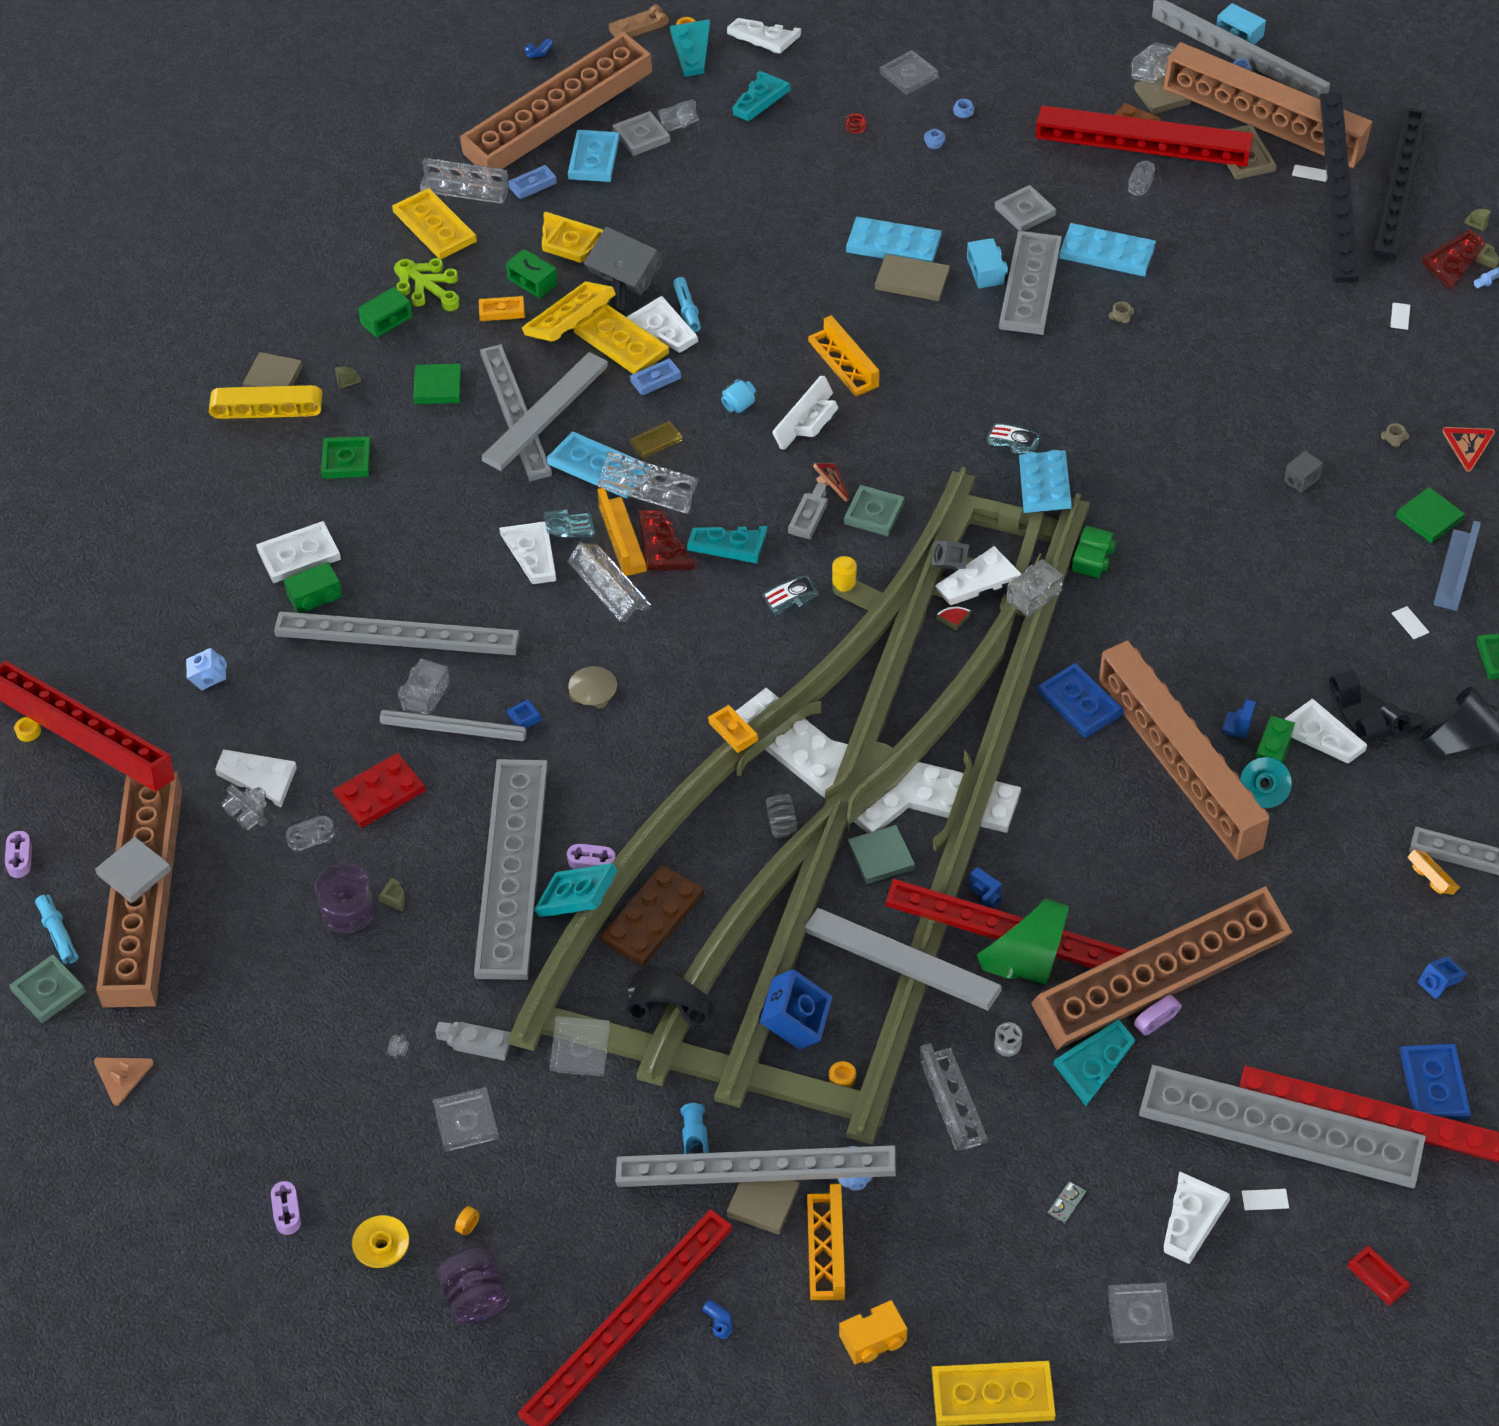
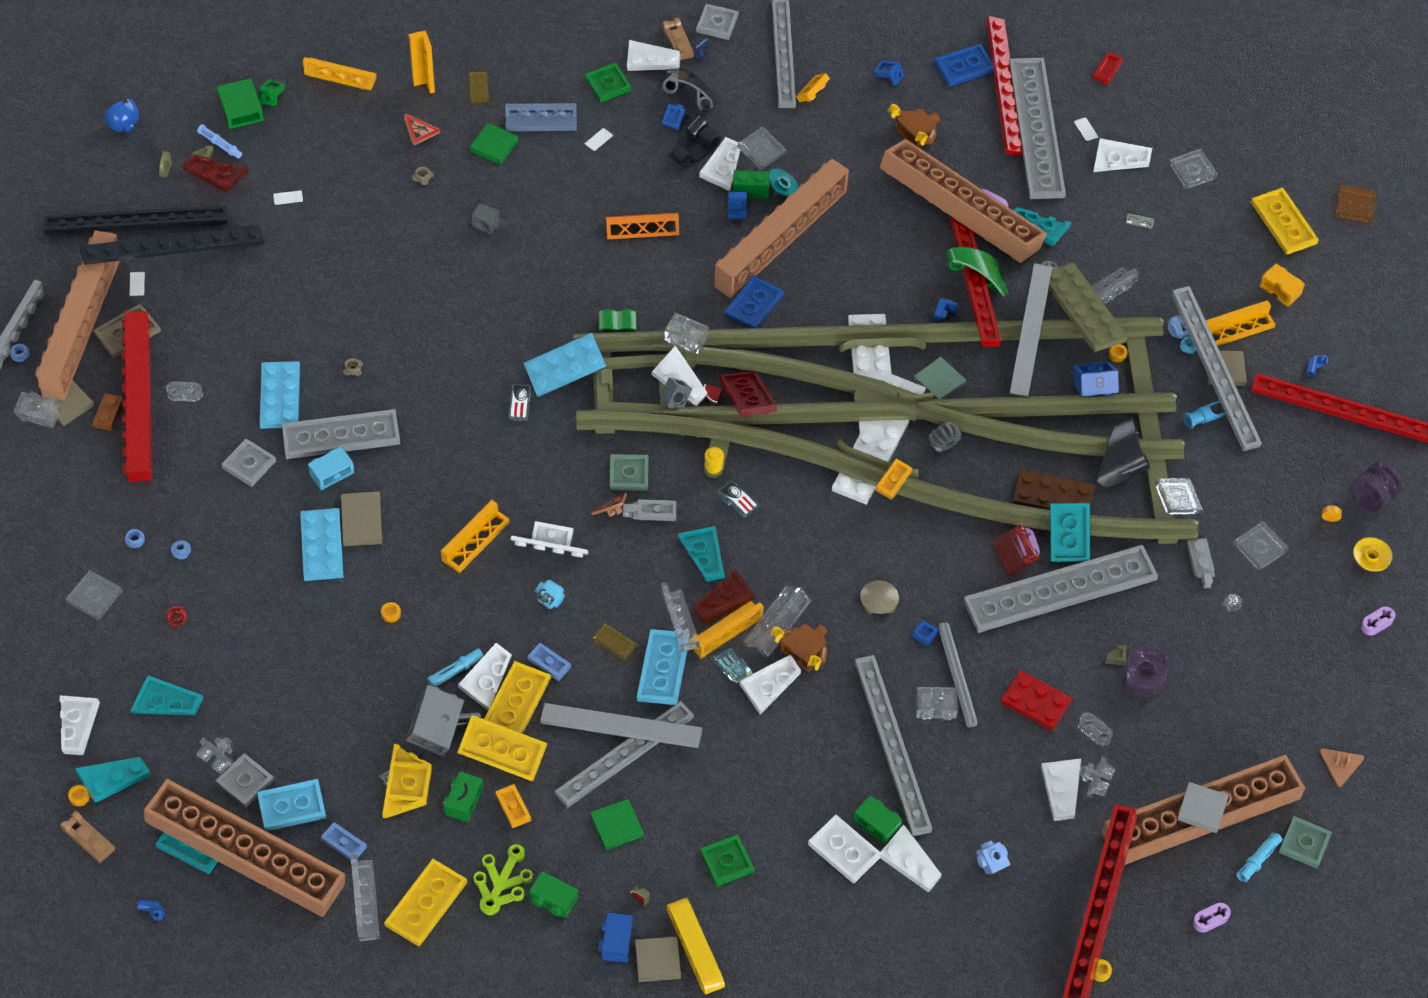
camera: 115 degrees left, 5 degrees up
(255, 605) = (910, 859): none -> white wing
(310, 346) = (616, 937): none -> blue brick
(559, 591) = (803, 644): none -> dark orange torso
(584, 834) = (1010, 552): none -> clear red plate
(782, 274) = (390, 612): none -> light orange tile
(918, 1037) = (1085, 308): none -> olive plate
(926, 630) = (748, 393): none -> dark red plate
(1252, 620) = (643, 218): none -> orange fence
(1322, 969) = (915, 125): none -> dark orange torso
(1336, 779) = (762, 148): none -> clear tile
(1424, 702) = (674, 116): none -> blue bracket

